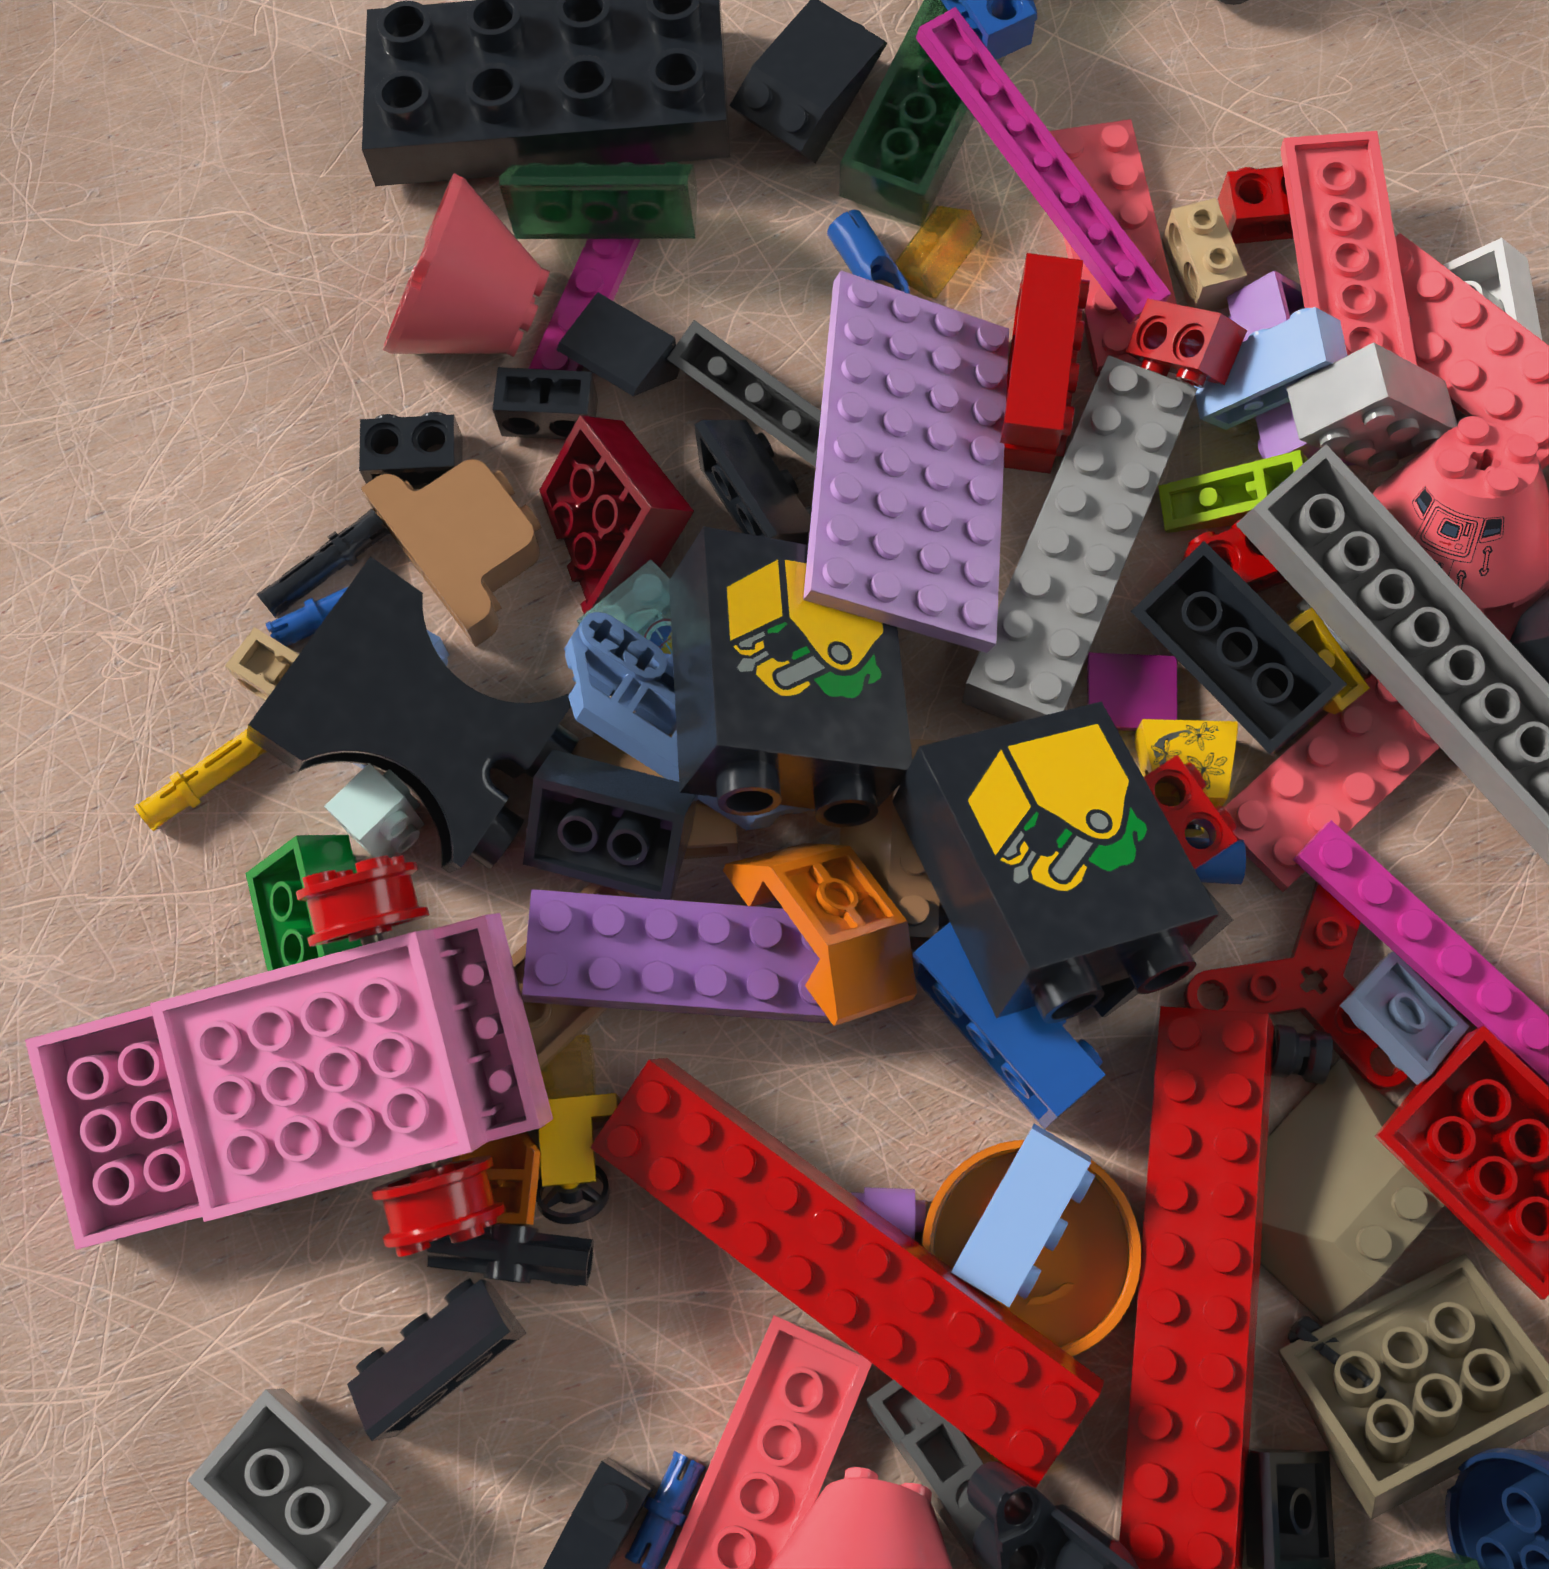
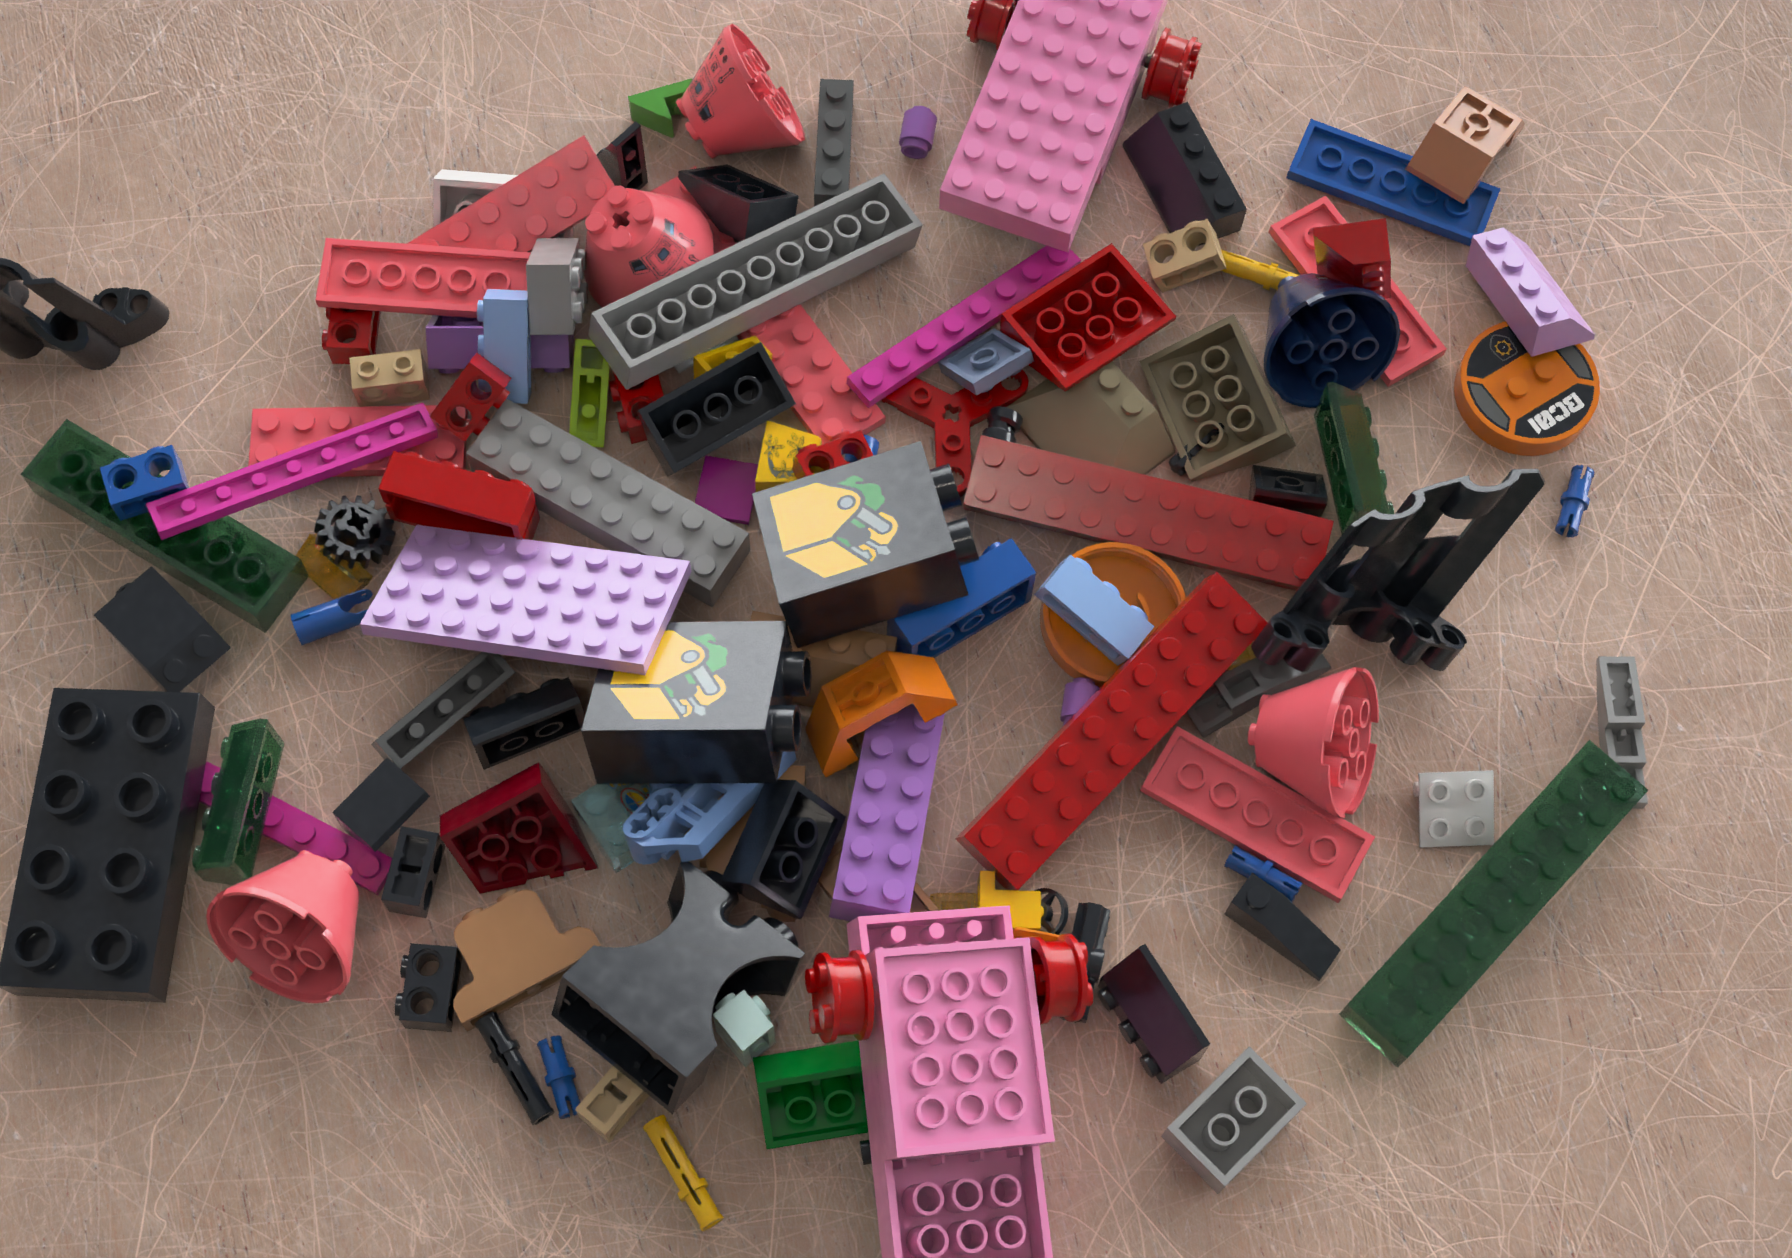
camera: 90 degrees left, 5 degrees down
(979, 237) = (354, 531): none -> black gear

